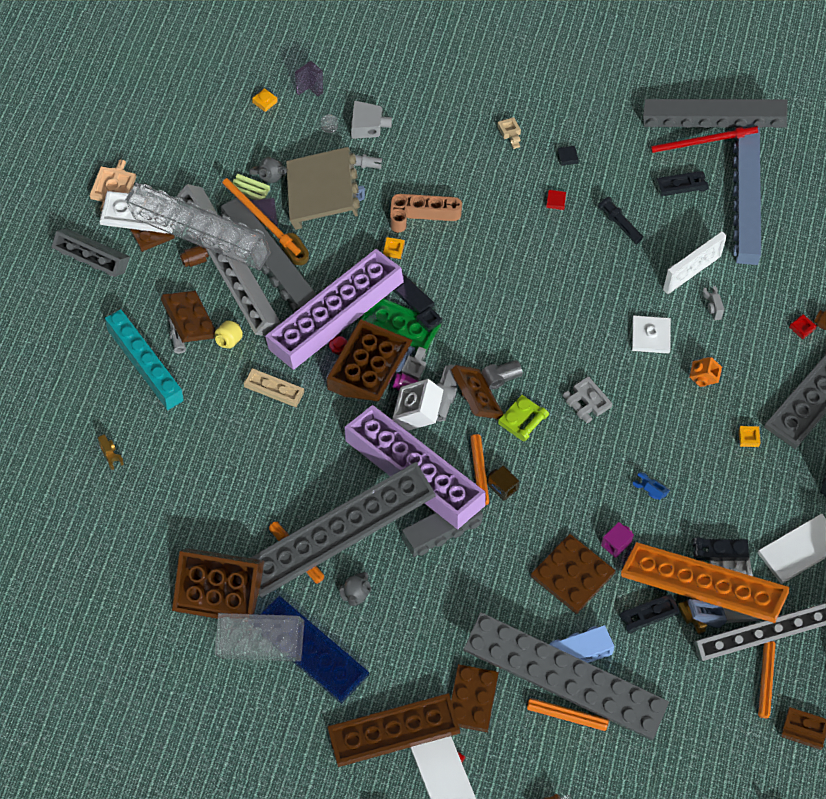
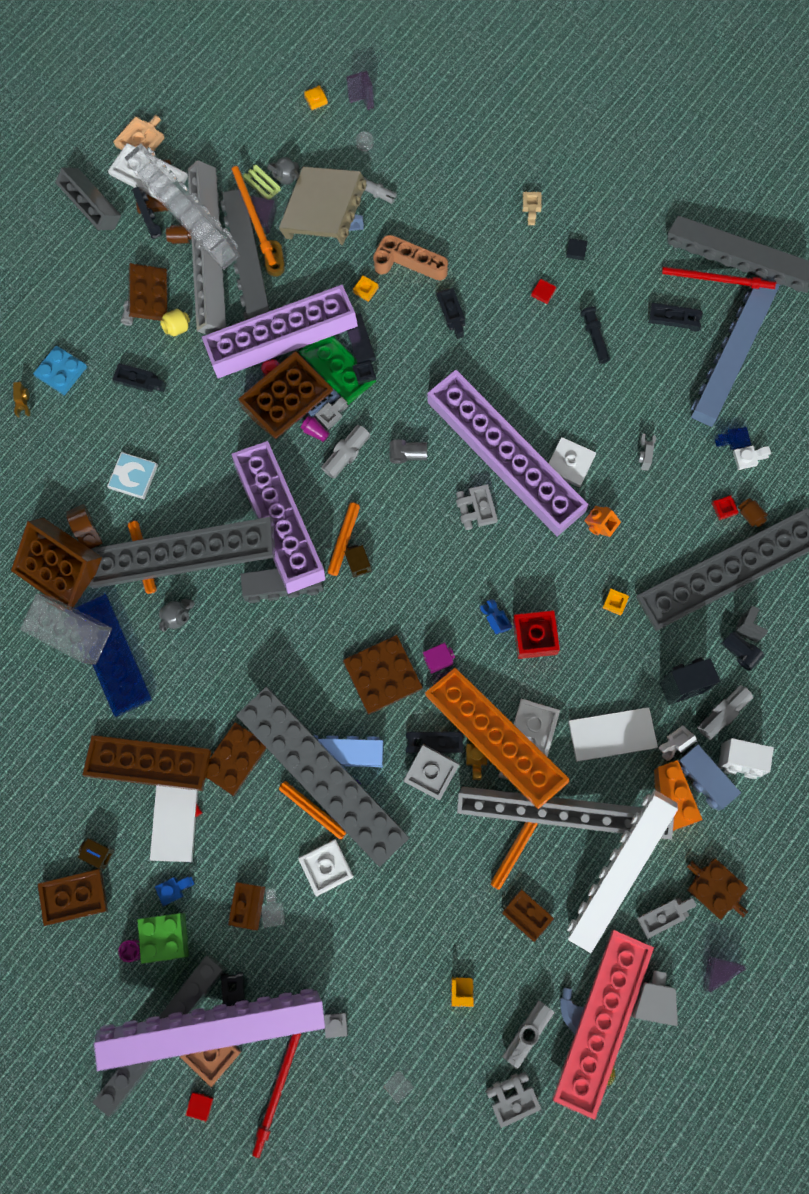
camera: 30 degrees right, 15 degrees up
(133, 414) = (60, 370): none -> dark azure plate
(144, 359) = (89, 321): teal brick -> none
(155, 247) = (147, 214): none -> black hinge
(215, 396) = (137, 378): none -> black hinge
(227, 540) = (83, 526): none -> reddish brown brick
(251, 483) = (132, 475): none -> tile
(274, 387) = (193, 389): tan plate -> none
(368, 120) = (400, 150): light grey torso -> none
(418, 404) = (311, 455): white brick -> none
(476, 392) = (373, 462): reddish brown plate -> none
(482, 242) = (451, 311): none -> black hinge
(518, 414) = (405, 497): lime plate -> none
(592, 343) = (507, 453): none -> lavender brick
(604, 760) = (325, 867): none -> white tile
(660, 637) = (431, 772): none -> light grey plate
(694, 263) = (645, 404): white tile -> none
(695, 487) = (536, 634): none -> red brick
(707, 613) = (495, 776): sand blue slope -> none
(720, 549) = (531, 707): black plate -> none
(783, 266) = (735, 438): none -> clear blue plate
(801, 279) = (748, 457): none -> white plate

